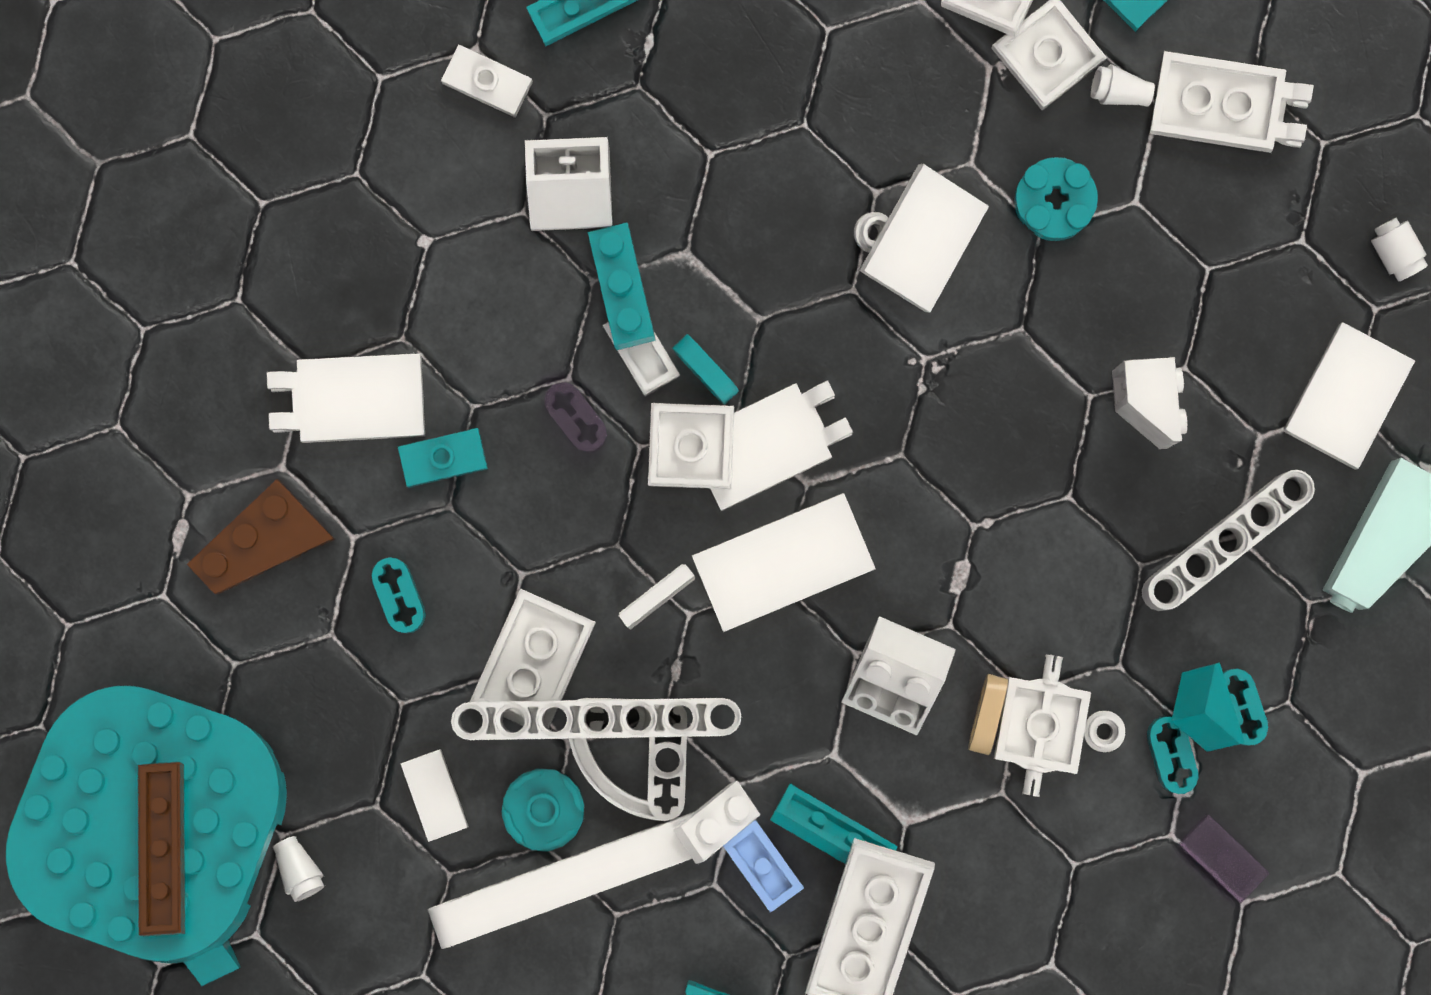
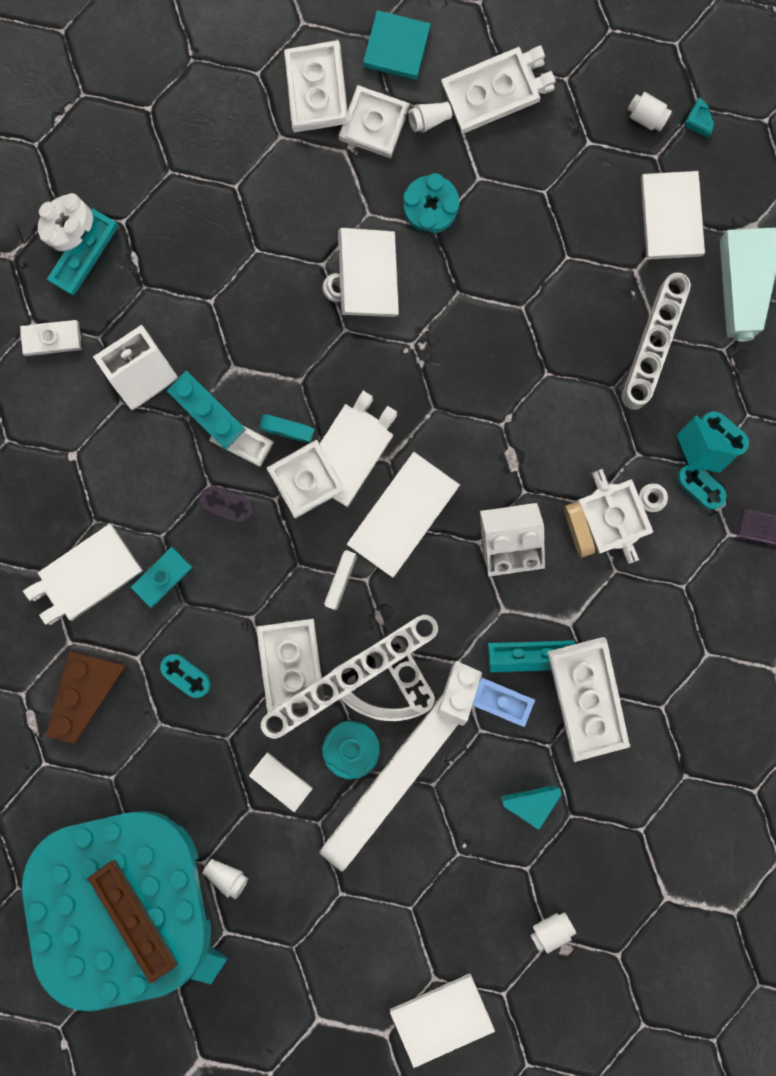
camera: 35 degrees left, 0 degrees up
(1148, 399) = (560, 285): white slope -> none

